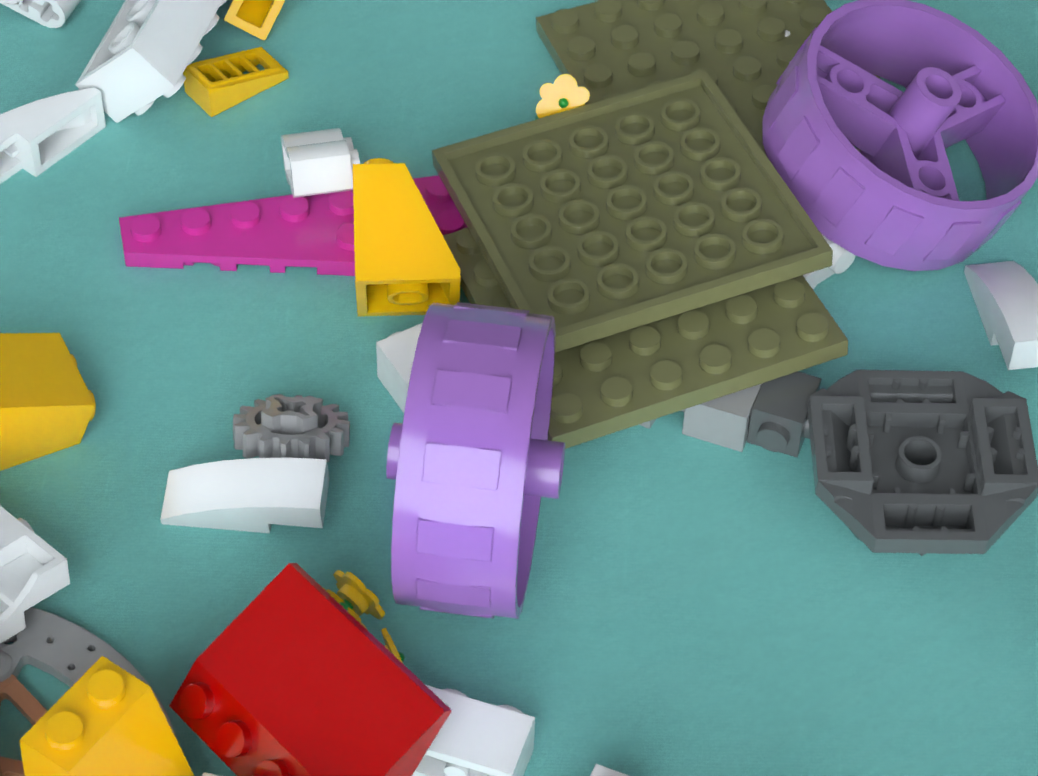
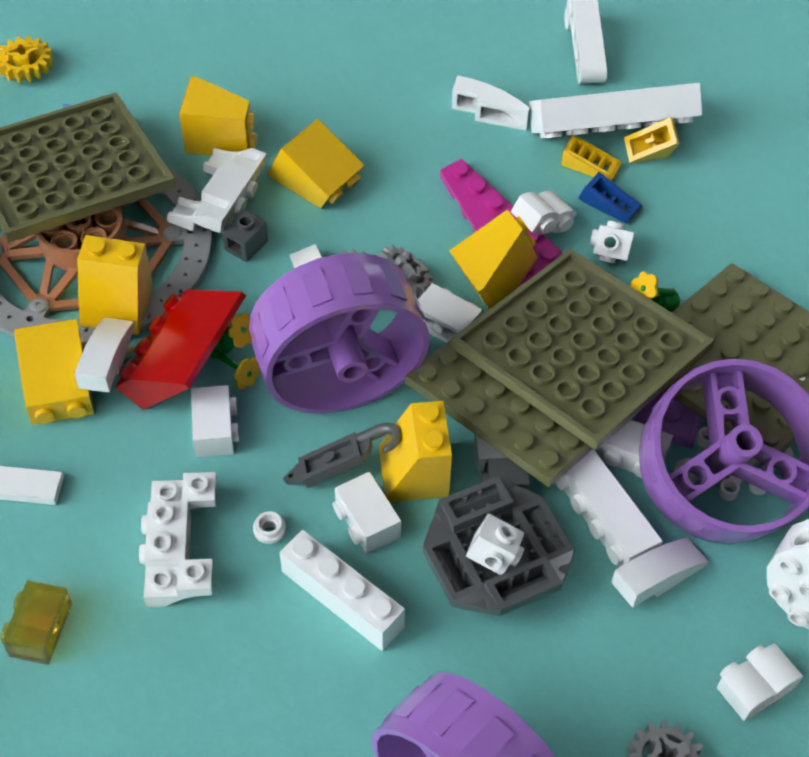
camera: 65 degrees right, 5 degrees up
(92, 558) = (245, 236): none -> dark grey brick
(322, 90) = (595, 193): none -> blue slope
(326, 371) = (411, 267): none -> light grey gear
(425, 113) = (623, 238): none -> white brick
(645, 587) = (341, 455): none -> dark grey plate
(701, 484) = (423, 458): none -> yellow slope
(716, 730) = (266, 520): none -> white plate
(759, 599) = (367, 513): none -> white brick
(887, 682) = (342, 590): none -> white brick
(911, 319) = (608, 510): none -> white brick
(940, 438) = (496, 545): none -> white brick

